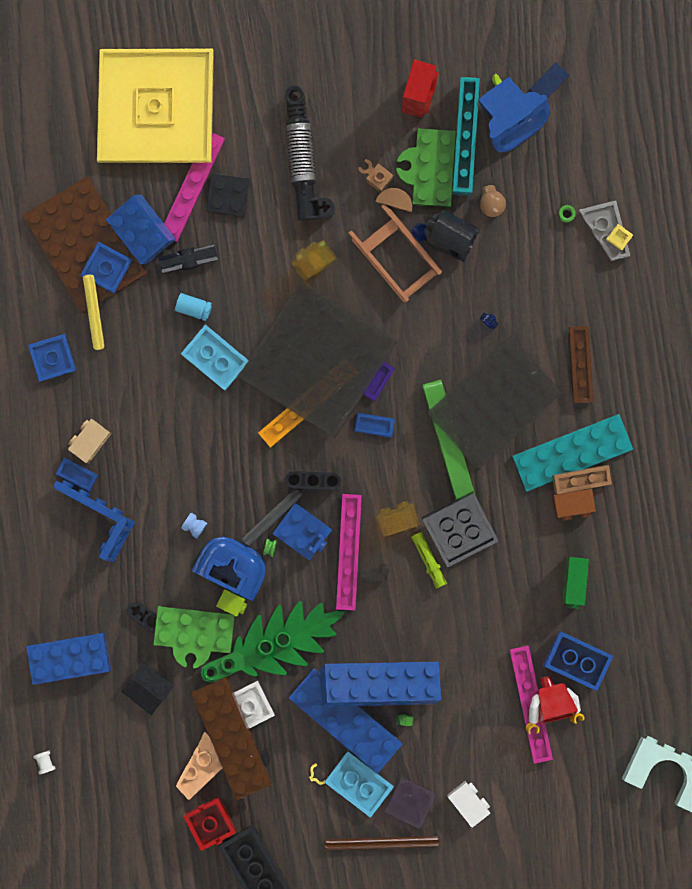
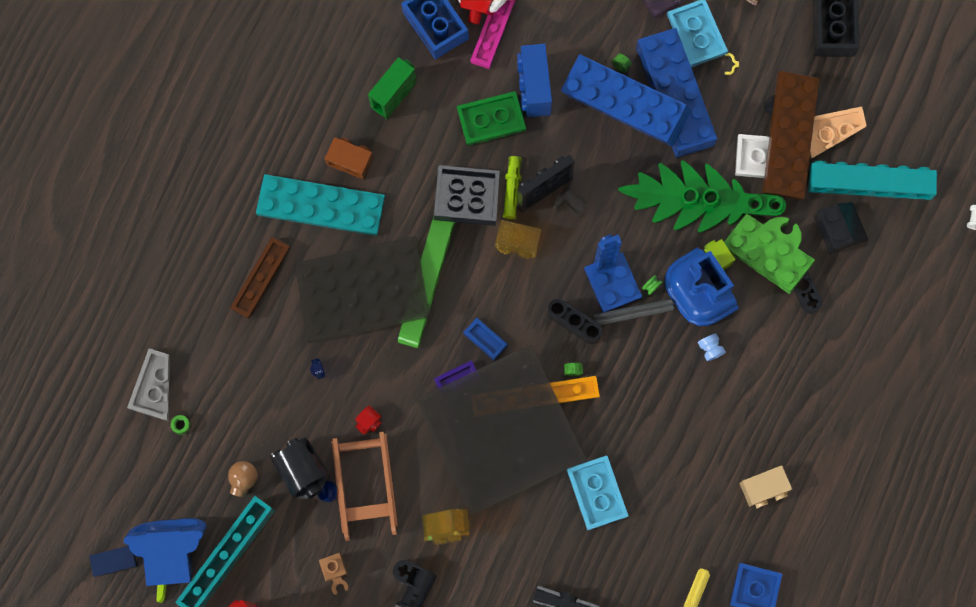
camera: 145 degrees left, 10 degrees down
(68, 658) = (902, 296): blue brick -> none
(77, 474) = (795, 463): blue tile -> none
(118, 533) = (792, 416): blue bracket -> none
(145, 741) = (872, 181): none -> teal brick
(193, 307) = (589, 554): medium azure piece -> none
(210, 823) = (854, 74): red brick -> none
(291, 442) = (573, 369): none -> bright green axle
(348, 552) = (581, 238): dark pink plate -> none
(395, 198) = (330, 539): medium nougat tile -> none
(403, 574) = (545, 183): none -> black plate
(424, 304) = (368, 420): none -> red plate
(430, 167) = (278, 549): bright green plate -> none
(465, 658) = (534, 80): none -> blue brick
(481, 607) = (491, 118): none -> green plate
(581, 479) = (328, 174): medium nougat plate -> none
(619, 237) = (147, 370): light yellow tile -> none

